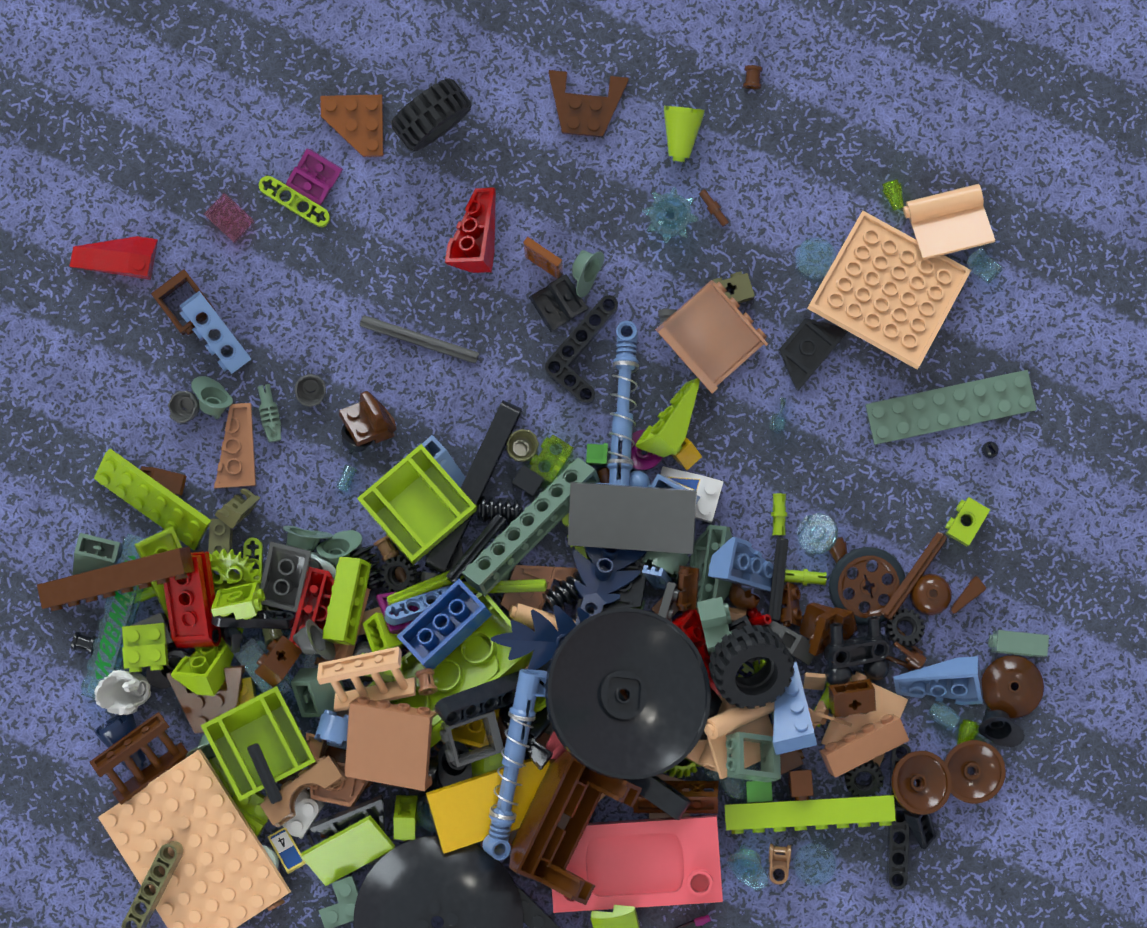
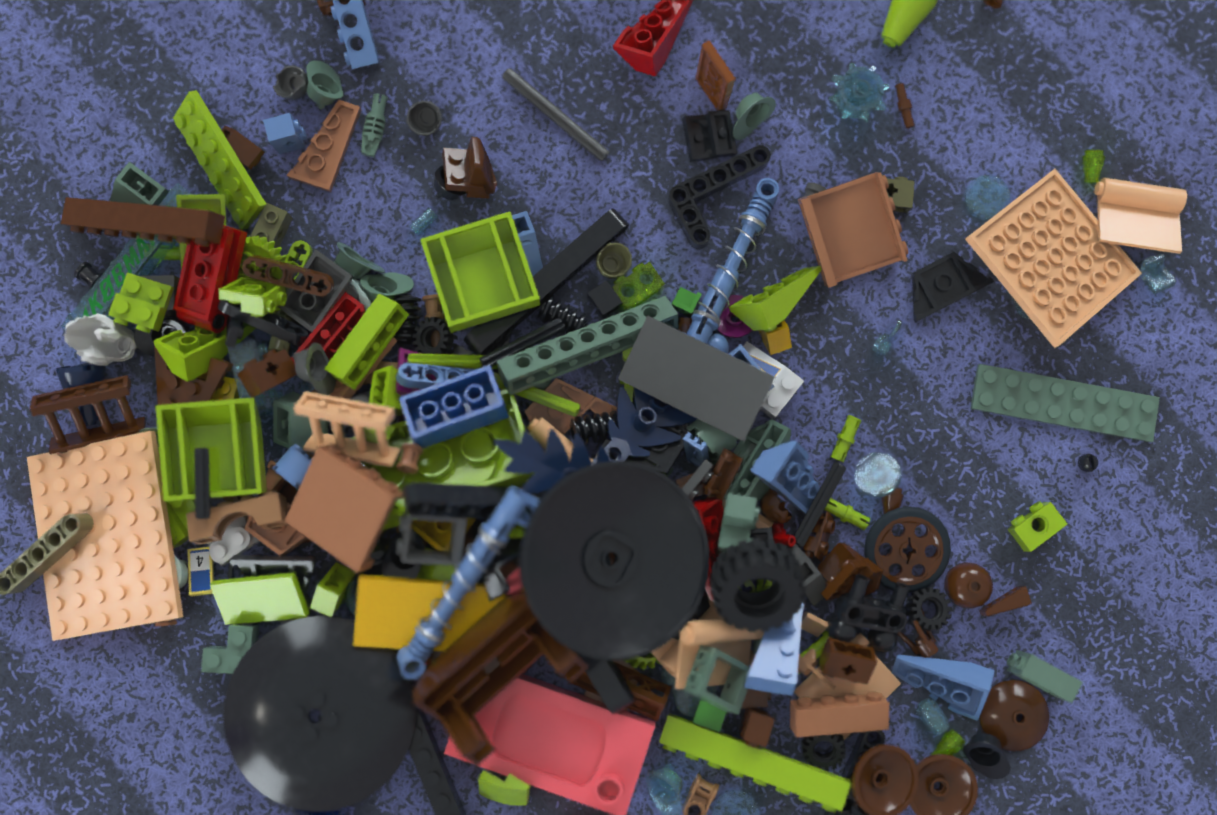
camera: 15 degrees right, 0 degrees up
(199, 453) = (285, 133): none -> medium blue brick
(237, 508) = (299, 206): olive hinge -> none
(259, 577) = (288, 275): none -> reddish brown beam
(914, 575) = (960, 559): reddish brown axle -> none

